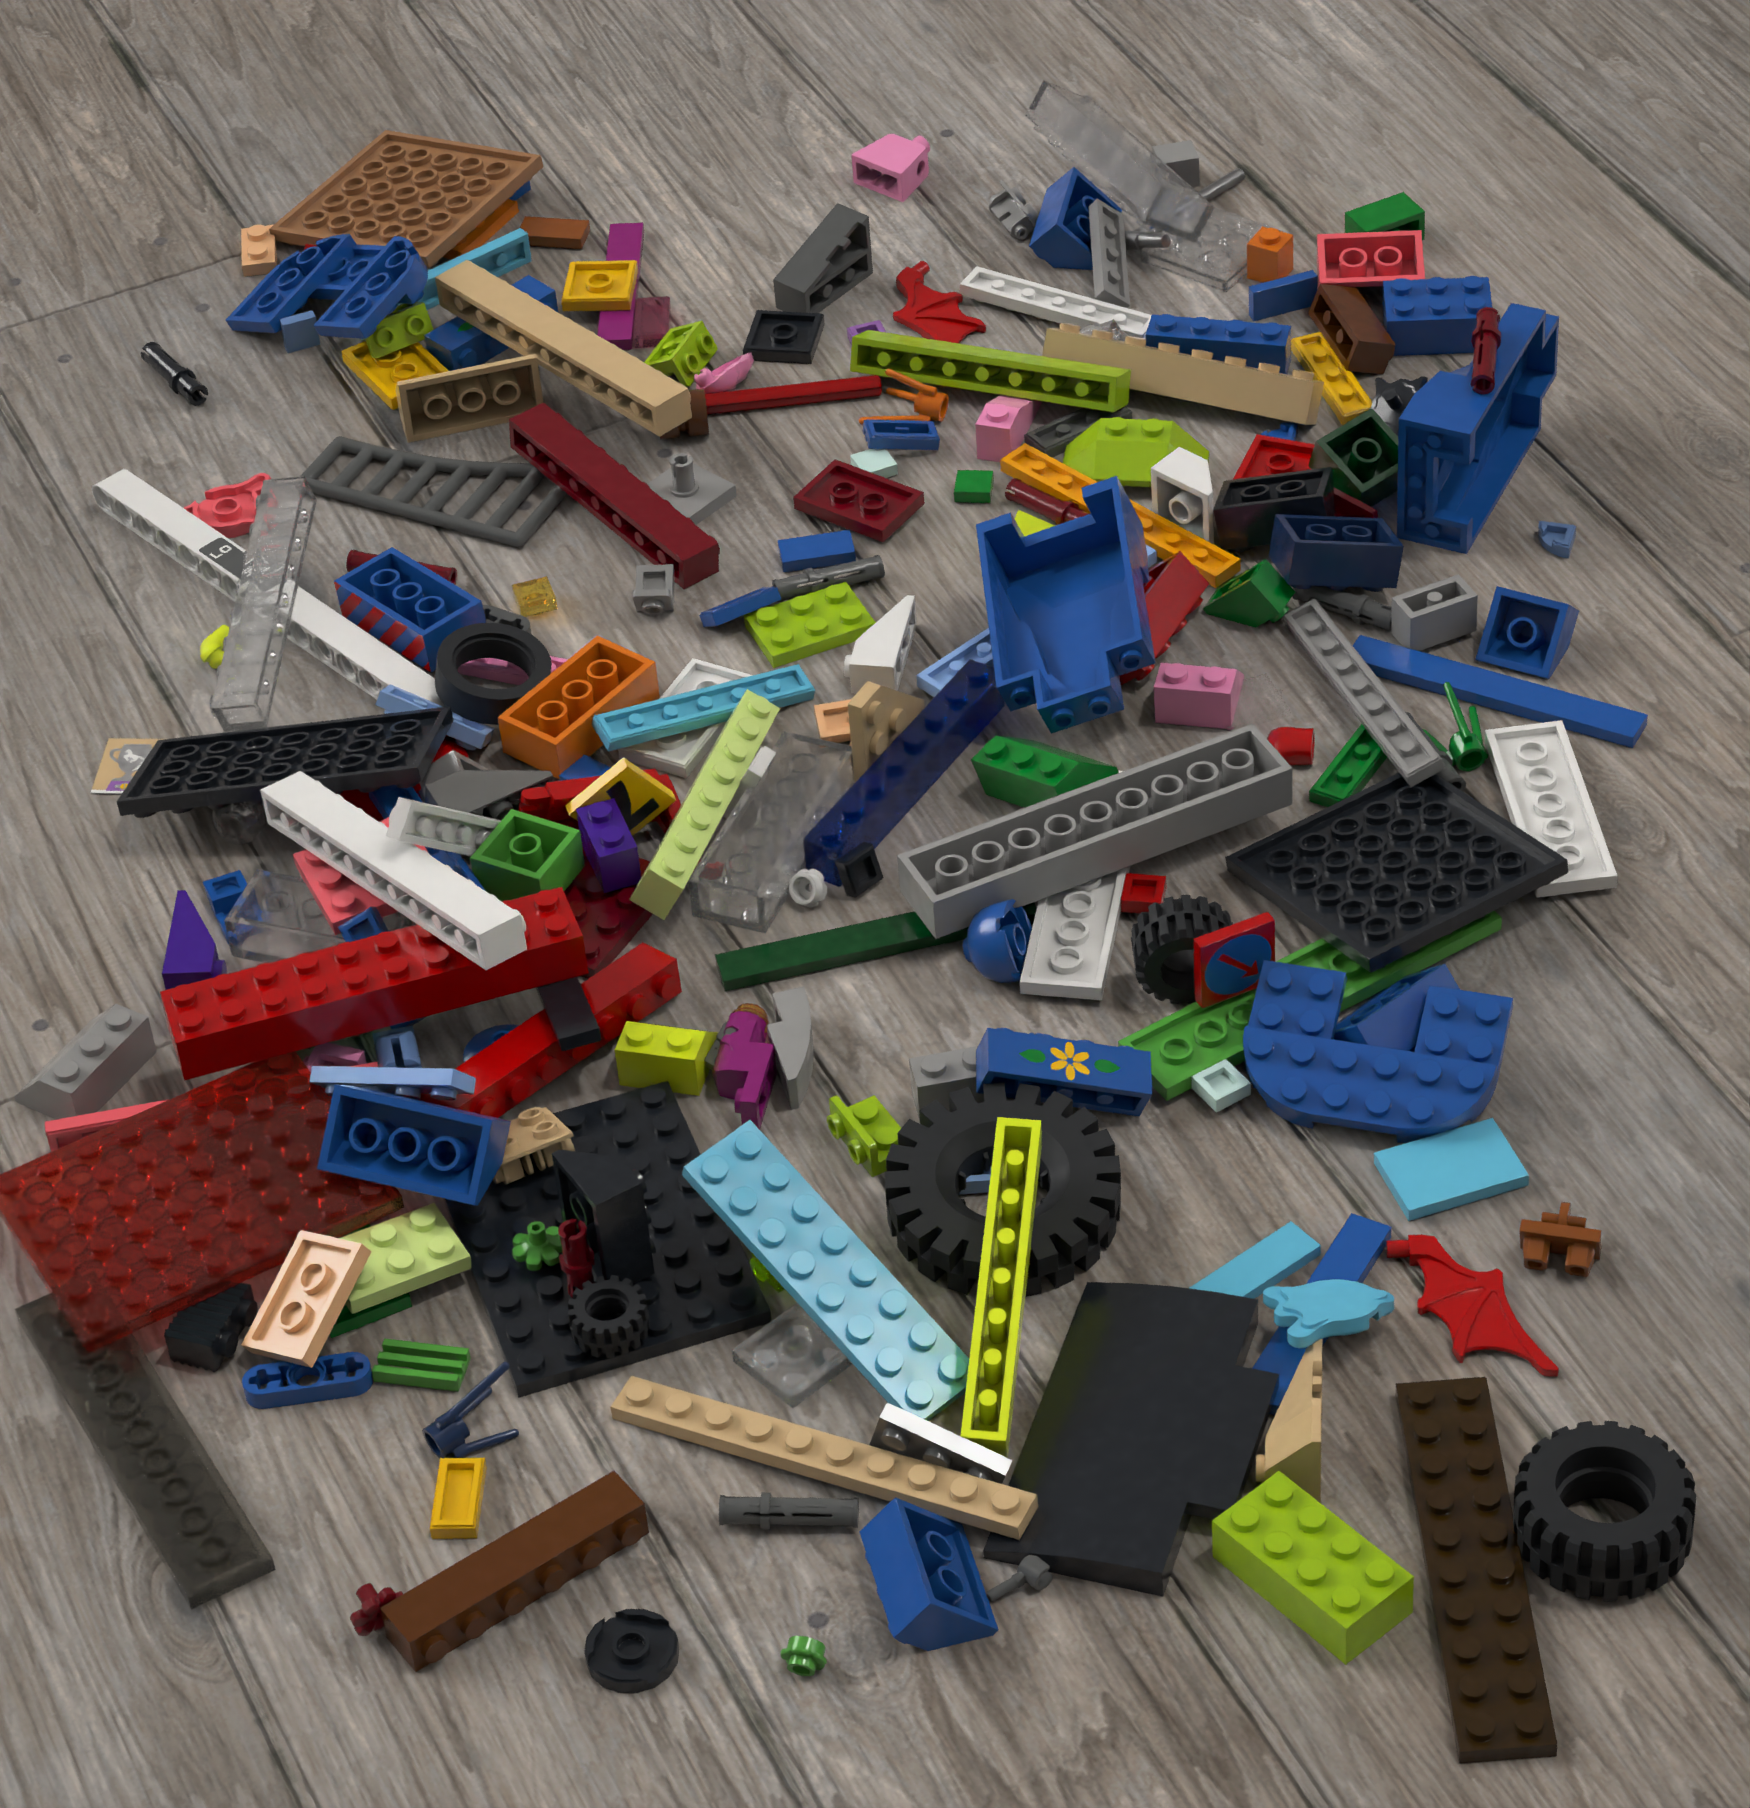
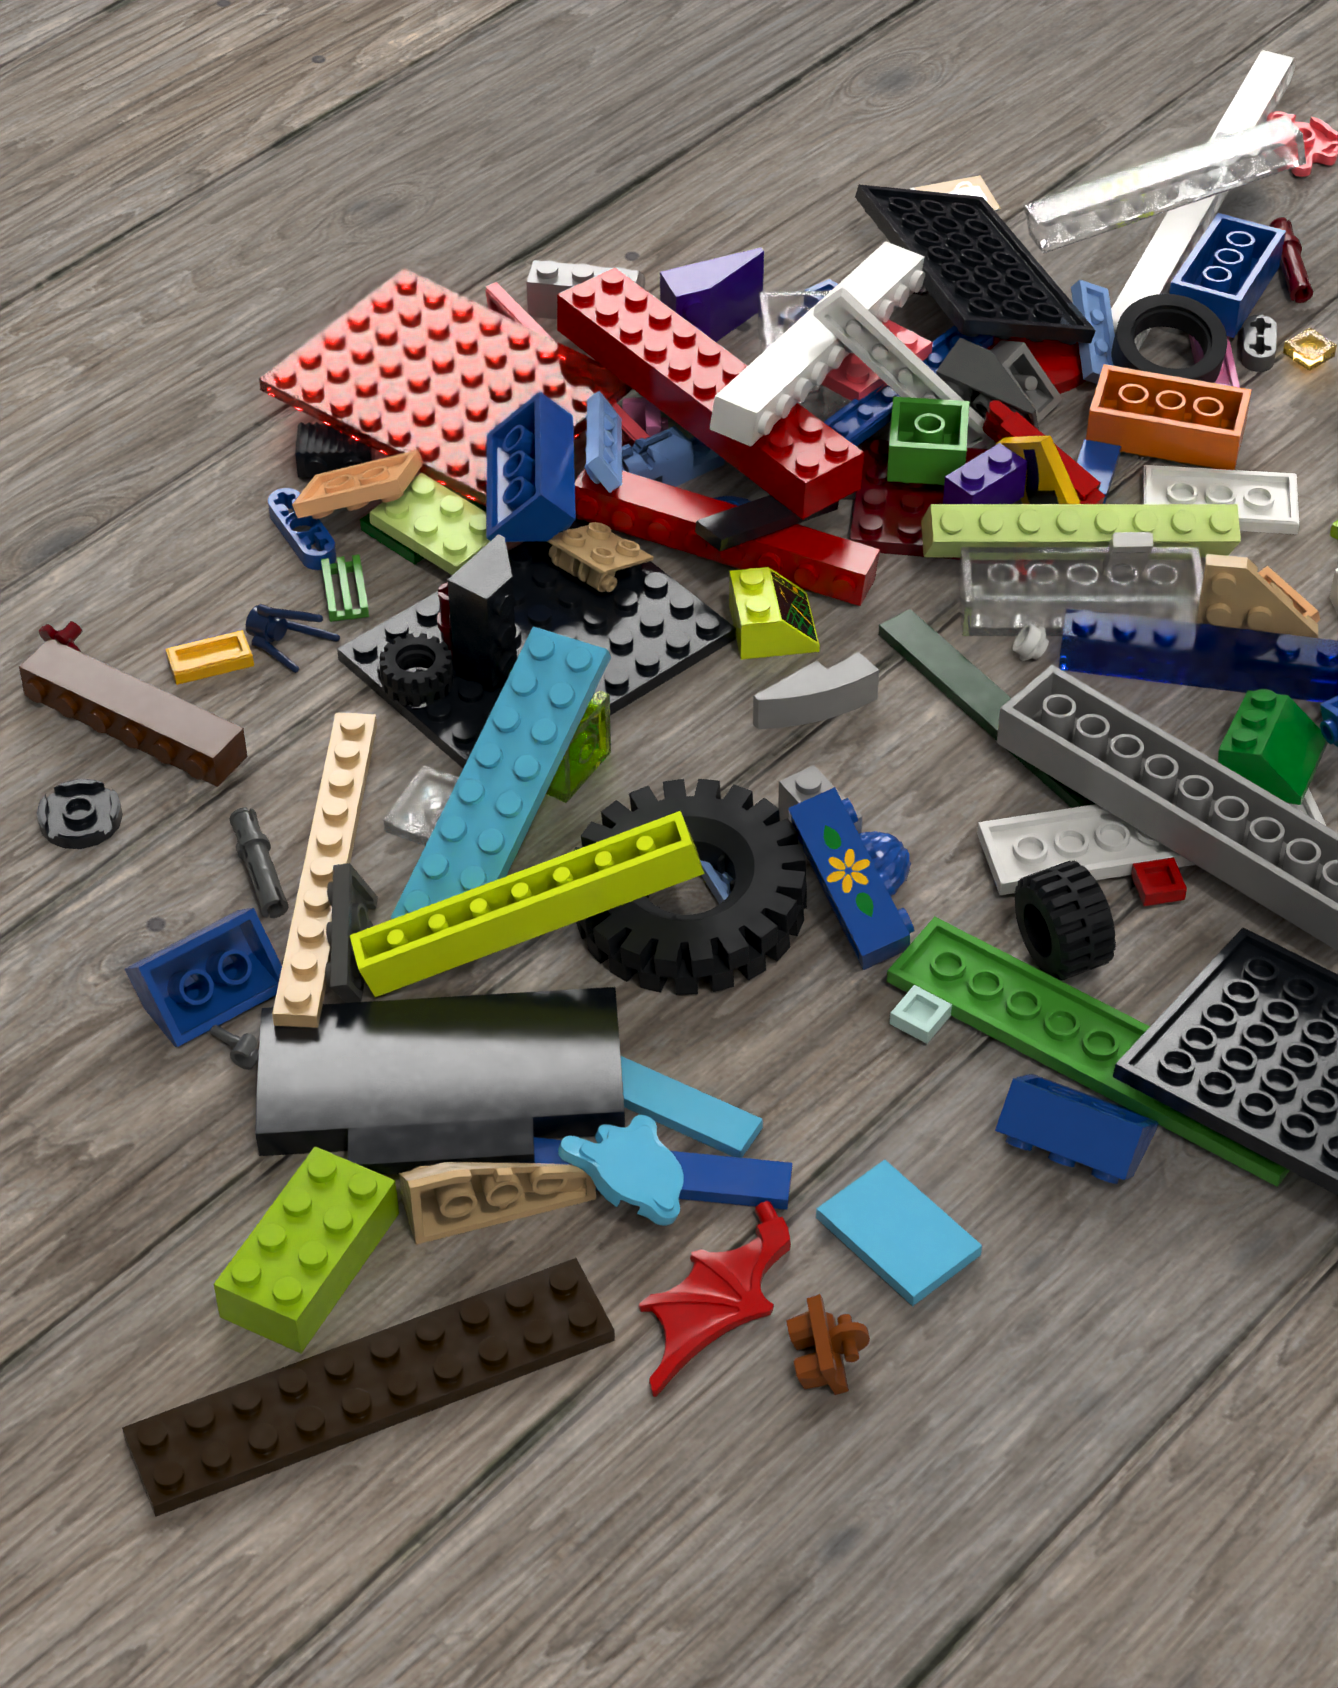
camera: 65 degrees right, 5 degrees up
(151, 1457) = (173, 478): clear smoke plate -> none
(698, 707) = (1207, 485): medium azure tile -> none
(744, 1063) = (769, 665): magenta plate -> none
(804, 1655) = (99, 921): bright green plate -> none
(859, 869) = (1073, 661): black tile -> none
(865, 1130) = (743, 767): lime bracket -> none
(998, 941) = (1019, 786): blue cylinder -> none
(1232, 959) = (1055, 956): tile -> none
(1364, 1086) = (959, 1123): blue plate -> none
(1594, 1555) = (458, 1519): black tyre -> none

